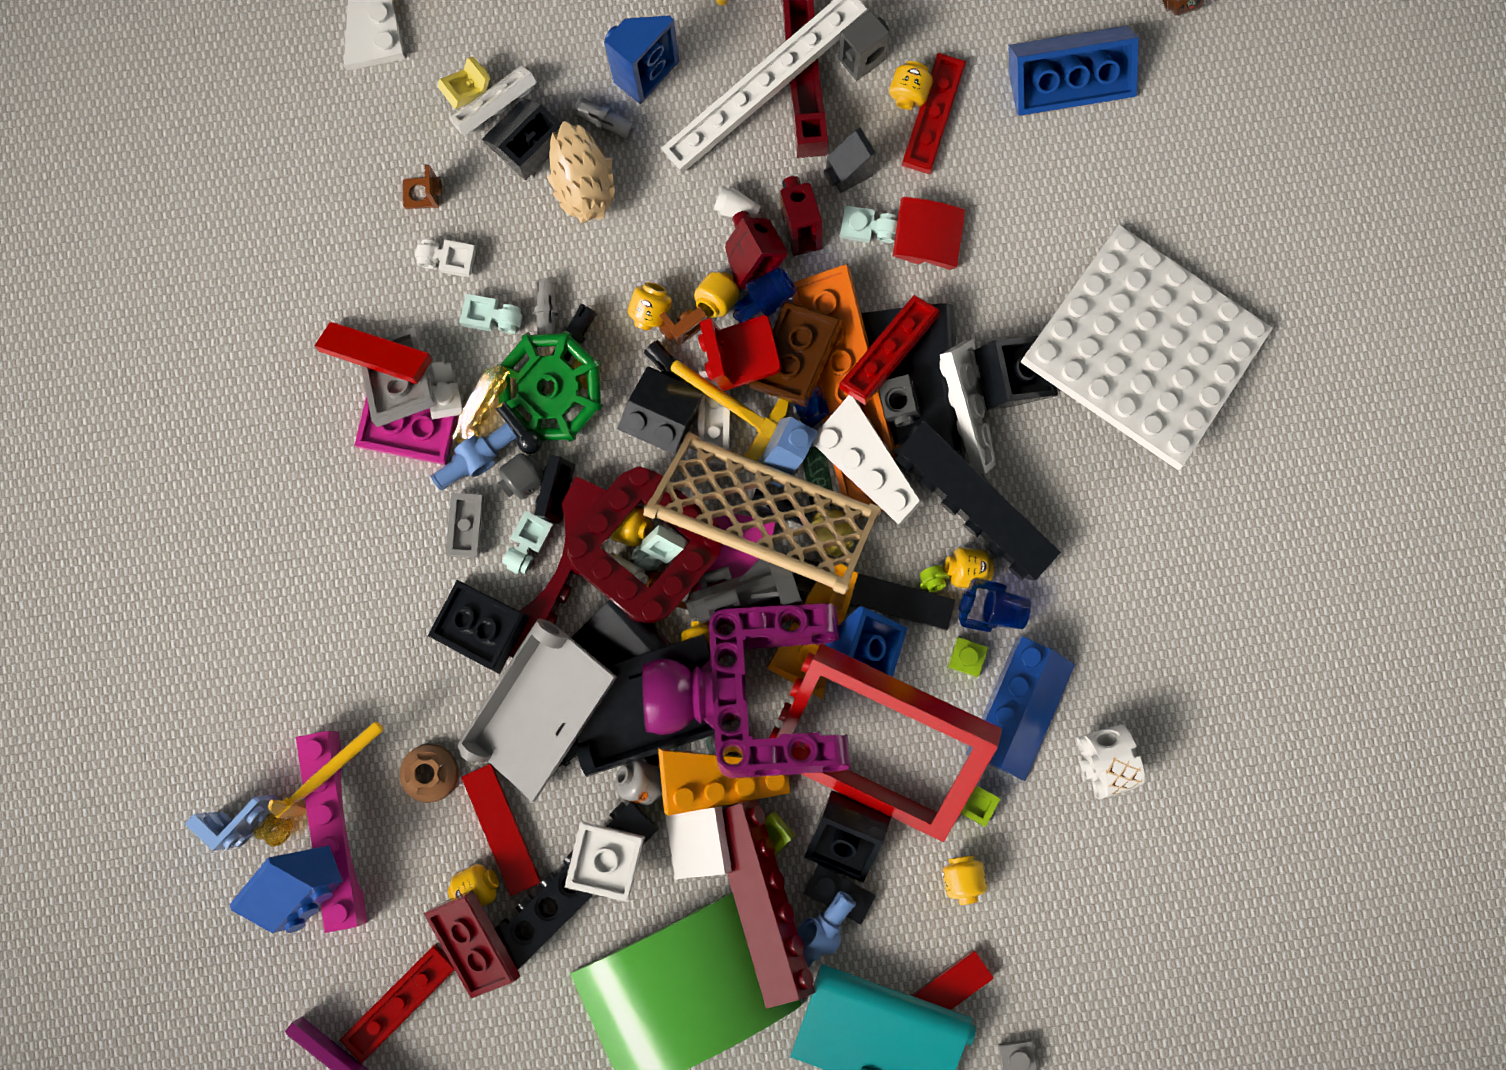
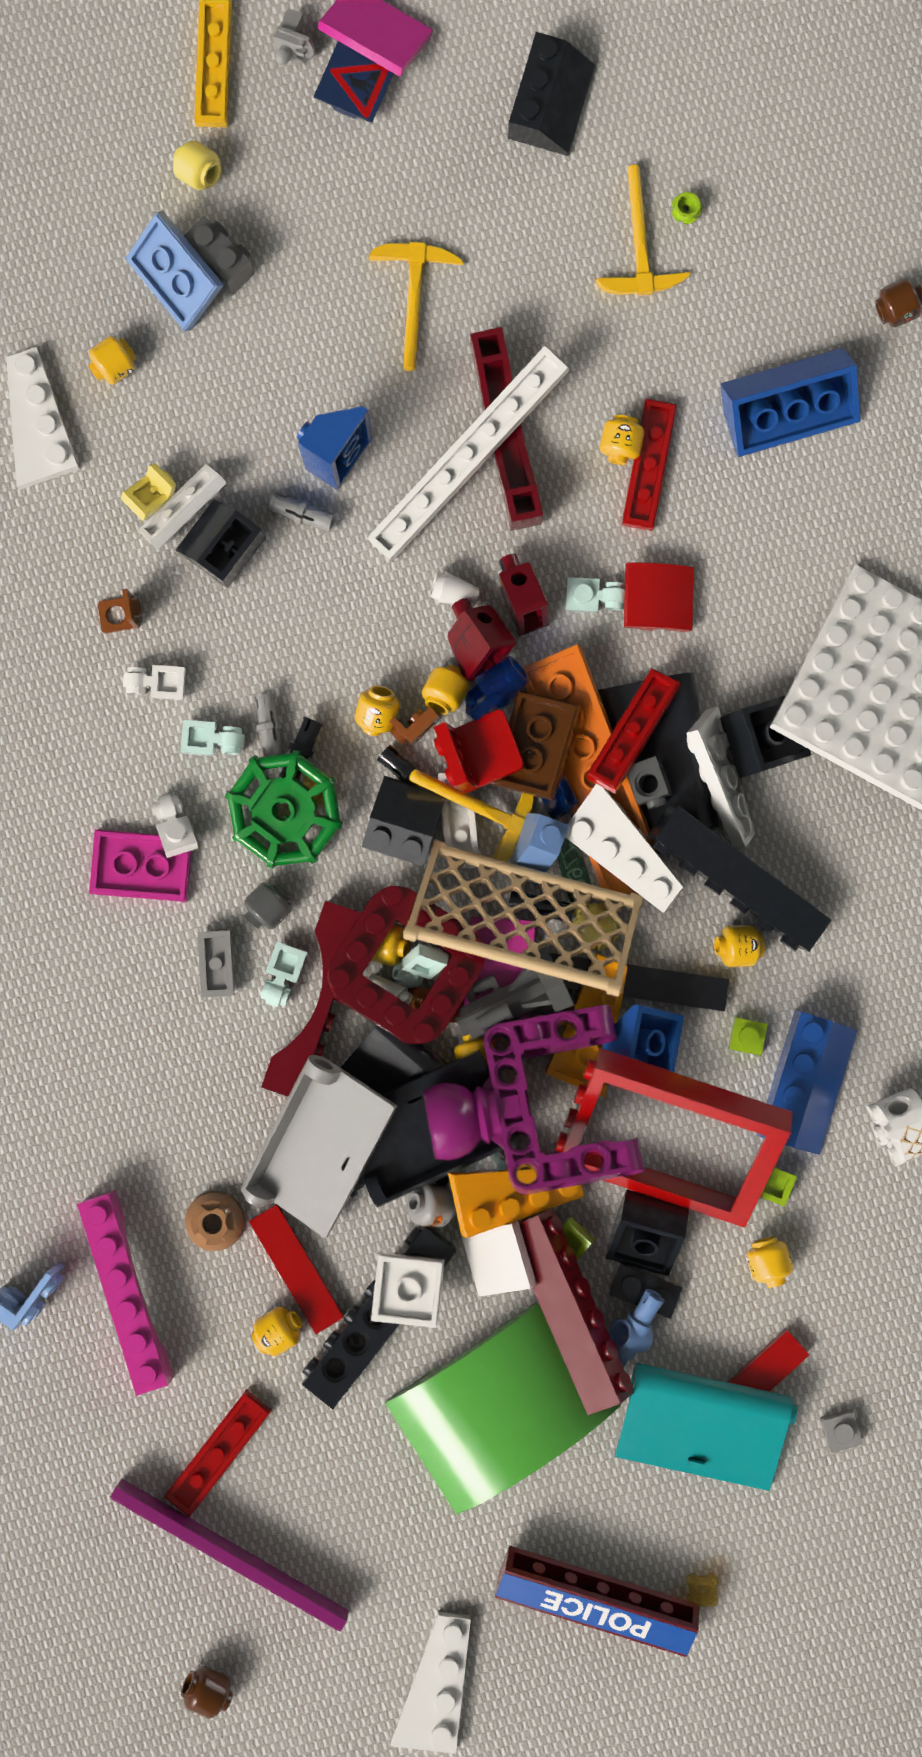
camera: 10 degrees left, 5 degrees up
(277, 836) = (67, 1298): clear yellow plate -> none
(288, 889) = (96, 1359): blue slope -> none
(295, 805) = (89, 1270): yellow piece -> none
(373, 352) = (96, 795): red tile -> none
(393, 397) = (123, 818): light grey plate -> none
(472, 944) = (284, 1387): dark red tile -> none
(474, 456) = (215, 890): medium blue pin -> none
(478, 626) = (246, 1067): black tile -> none
(479, 404) = (213, 839): clear yellow hinge -> none
(528, 440) = (269, 867): black bar -> none
(554, 487) = (304, 915): black plate -> none
(580, 173) = (287, 579): tan head -> none
(850, 162) = (568, 532): black slope -> none
(863, 45) = (568, 403): dark grey brick -> none
(934, 578) = (705, 961): lime plate -> none
(999, 607) = (774, 985): clear blue piece -> none

